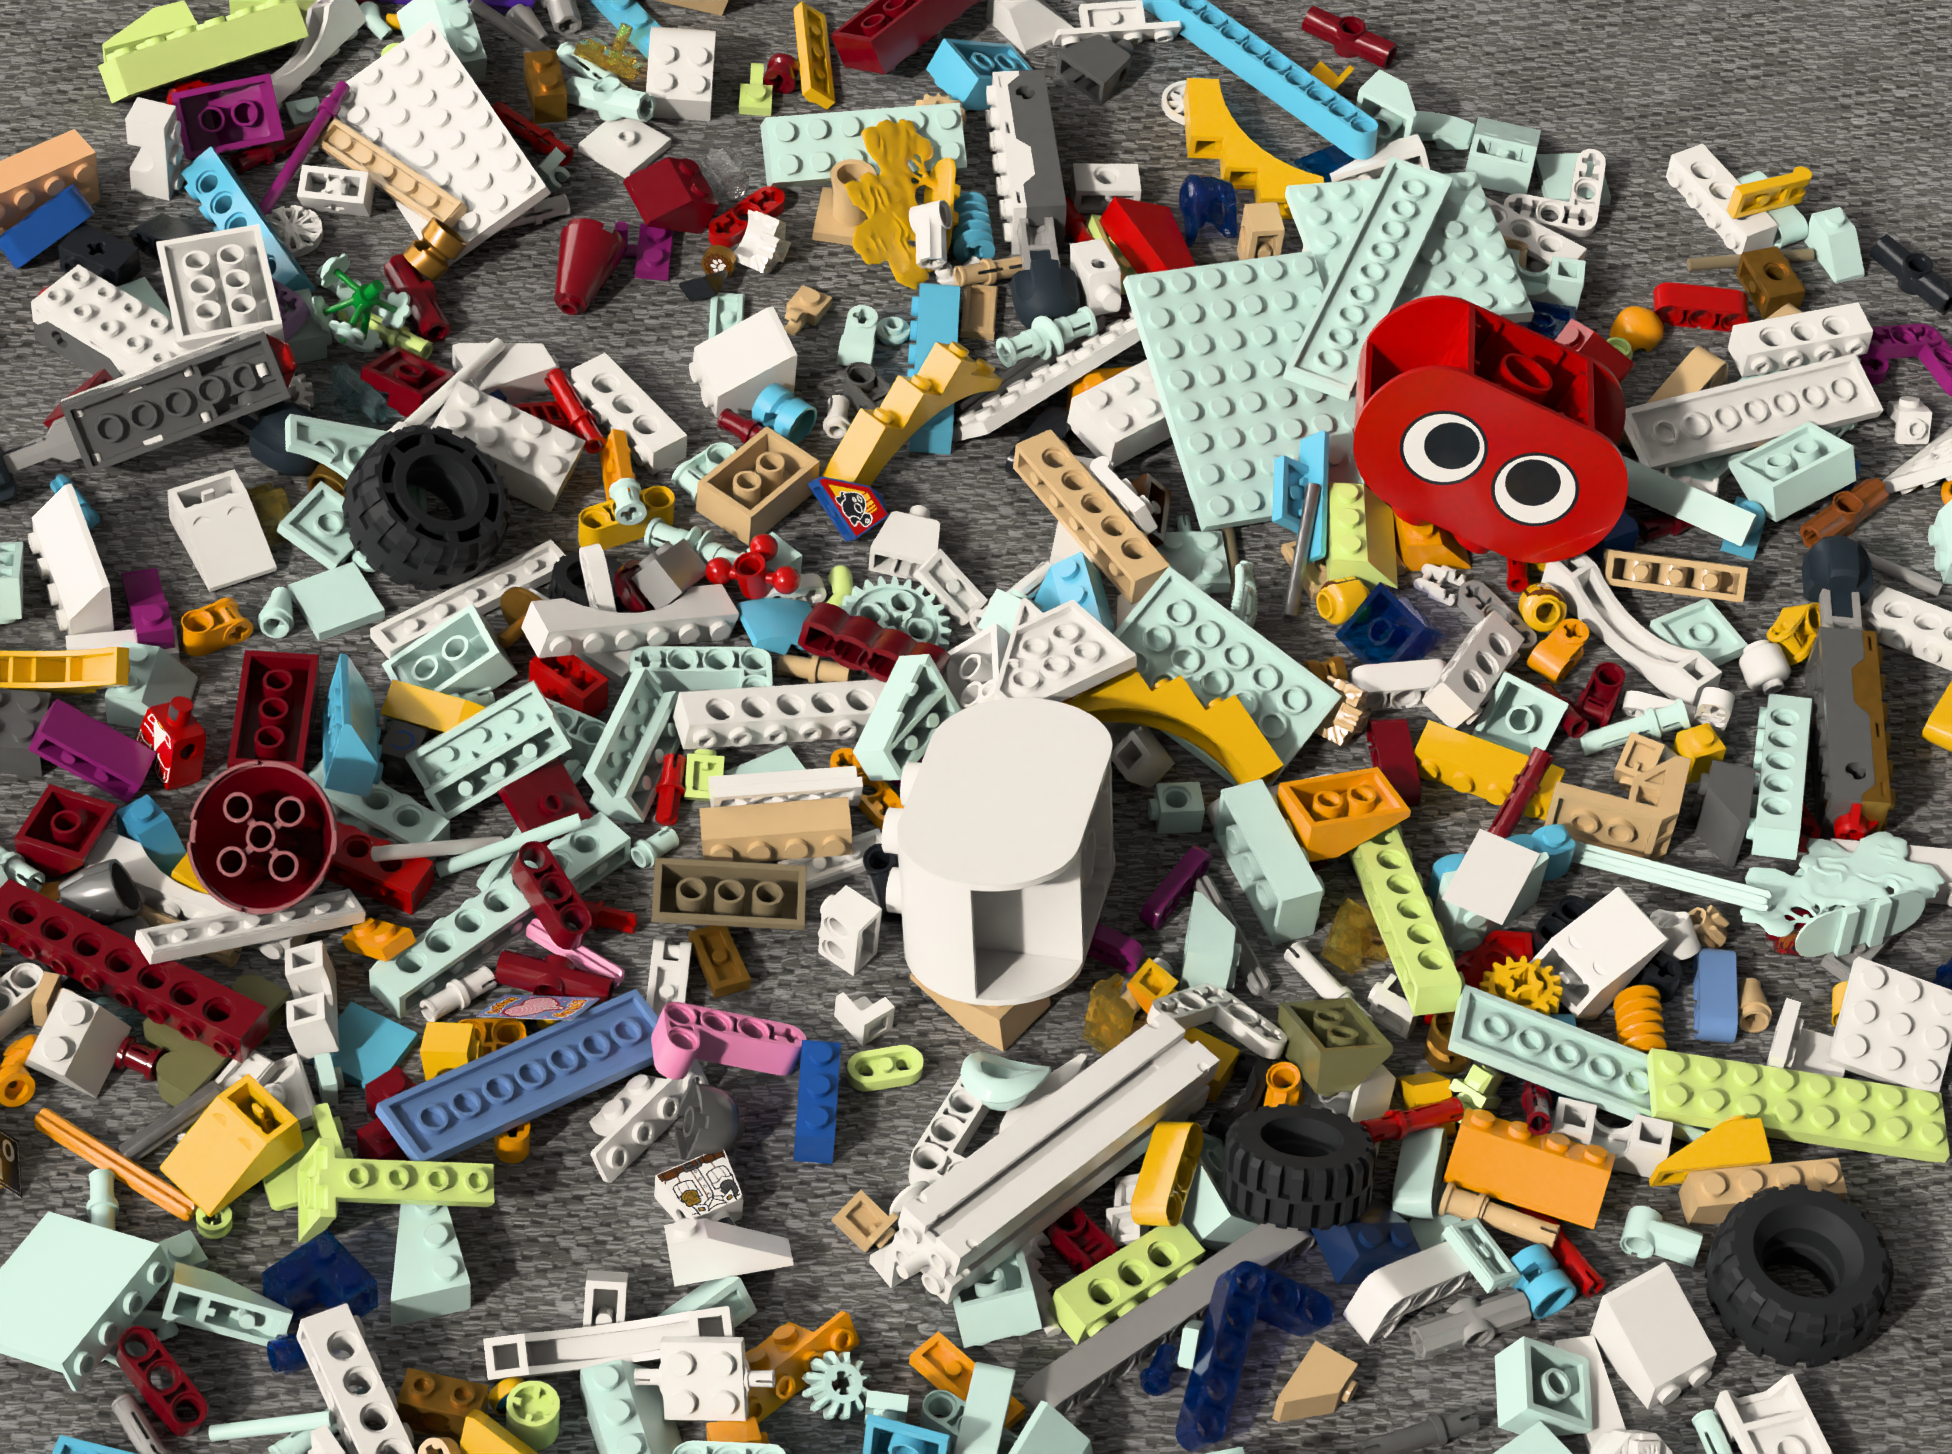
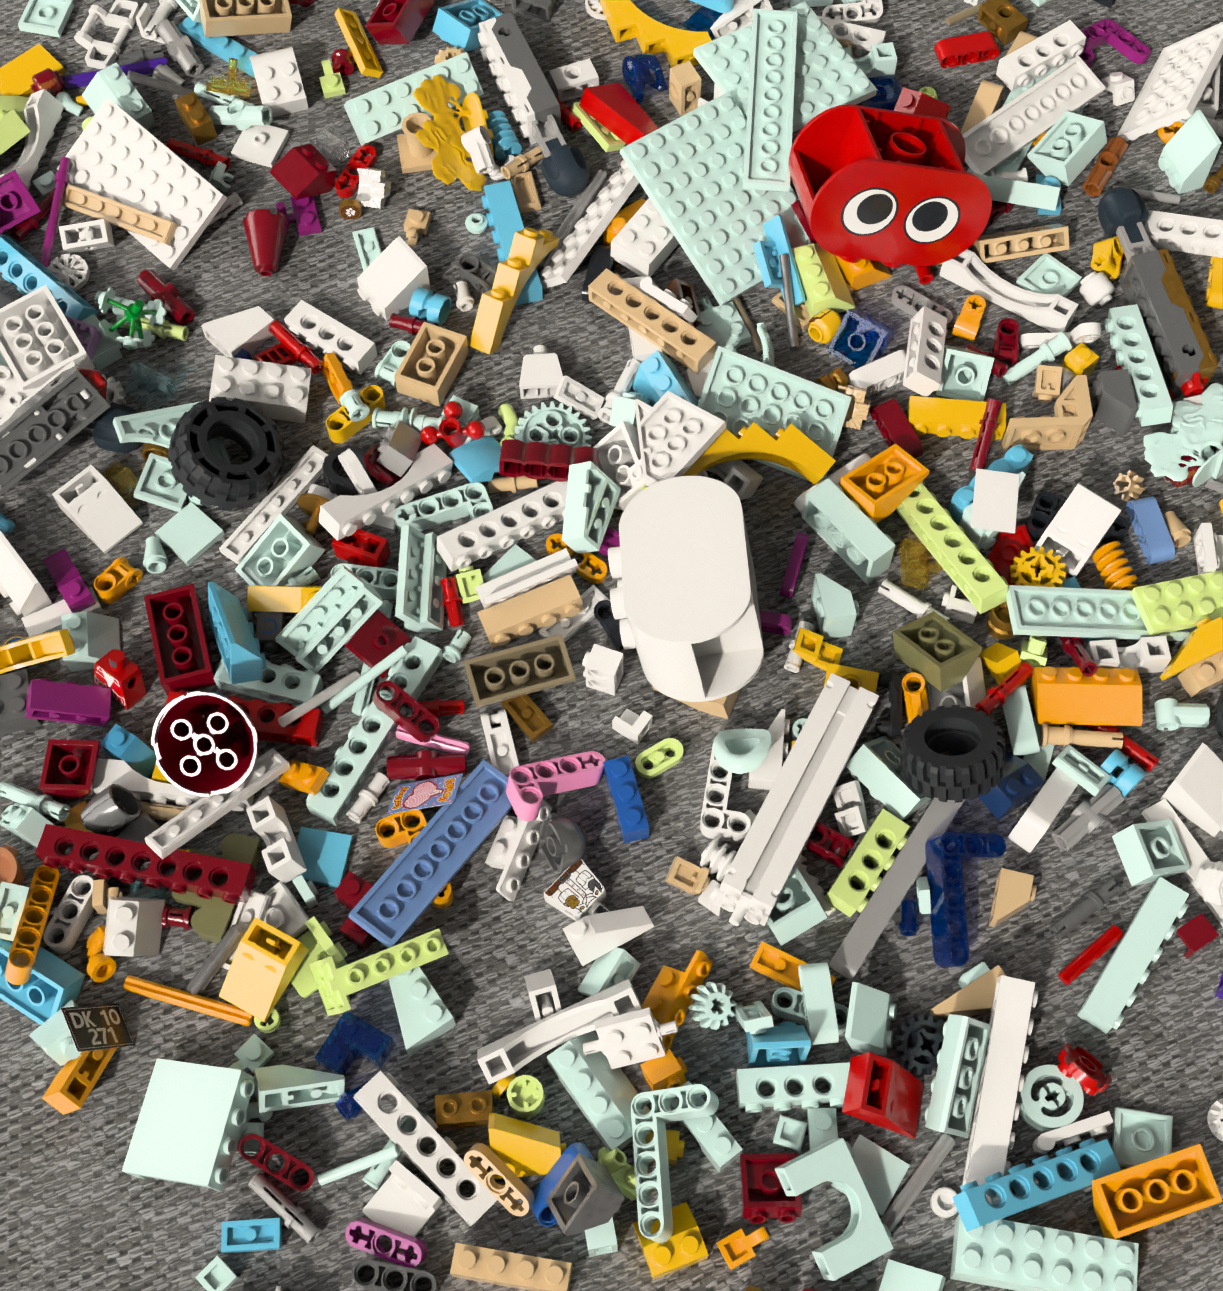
camera: 10 degrees left, 15 degrees up
(102, 1205) = (191, 1037): light aqua pin -> none
(406, 378) = (183, 360): dark red plate -> none
(435, 249) = (166, 259): pearl gold wheel -> none
(448, 1047) = (380, 852): yellow brick -> none
(463, 375) = (209, 364): white bar -> none
(703, 286) = (346, 229): black slope -> none
(849, 505) = (496, 361): slope -> none
(858, 339) = (457, 236): light aqua piece -> none
(1046, 337) = (577, 199): light aqua piece -> none
(1097, 286) = (594, 147): white torso -> none
(1108, 1016) = (789, 679): clear yellow bracket -> none
(1167, 1173) = (870, 784): yellow beam -> none
(1177, 807) = (779, 499): light aqua brick -> none
(1215, 1004) = (885, 657): white beam -> none
(1249, 965) = (818, 565): light grey axle -> none
(1442, 575) = (876, 299): white piece -> none
(1546, 617) = (948, 291): yellow head -> none
(1639, 327) = (933, 75): light orange hair -> none
(1672, 876) = (1100, 458): light aqua axle -> none
(1681, 933) = (1115, 494): white piece -> none

